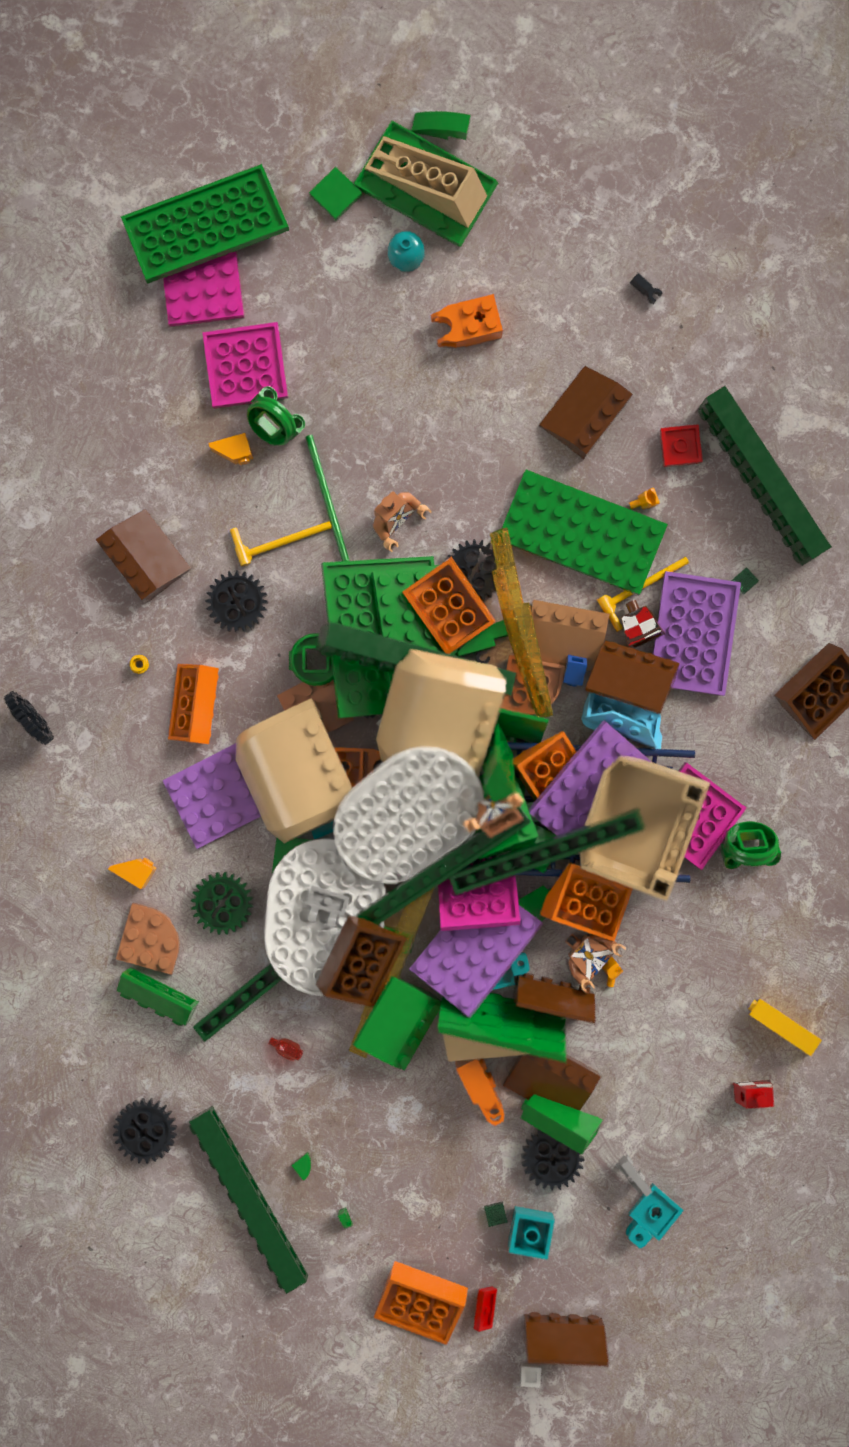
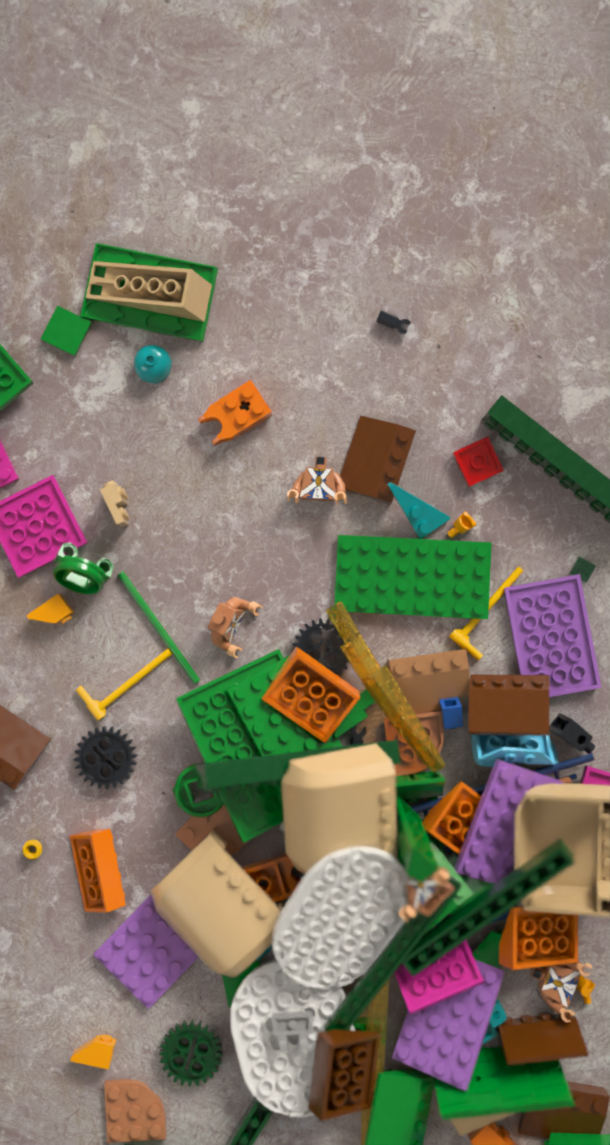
camera: 25 degrees left, 0 degrees up
(329, 364) = (115, 498): none -> tan plate
(441, 124) = (145, 231): green slope -> none
(523, 415) = (318, 484): none -> torso
(609, 475) = (421, 515): none -> teal wing
(640, 625) = (498, 648): torso -> none
(682, 728) = (572, 733): none -> black torso

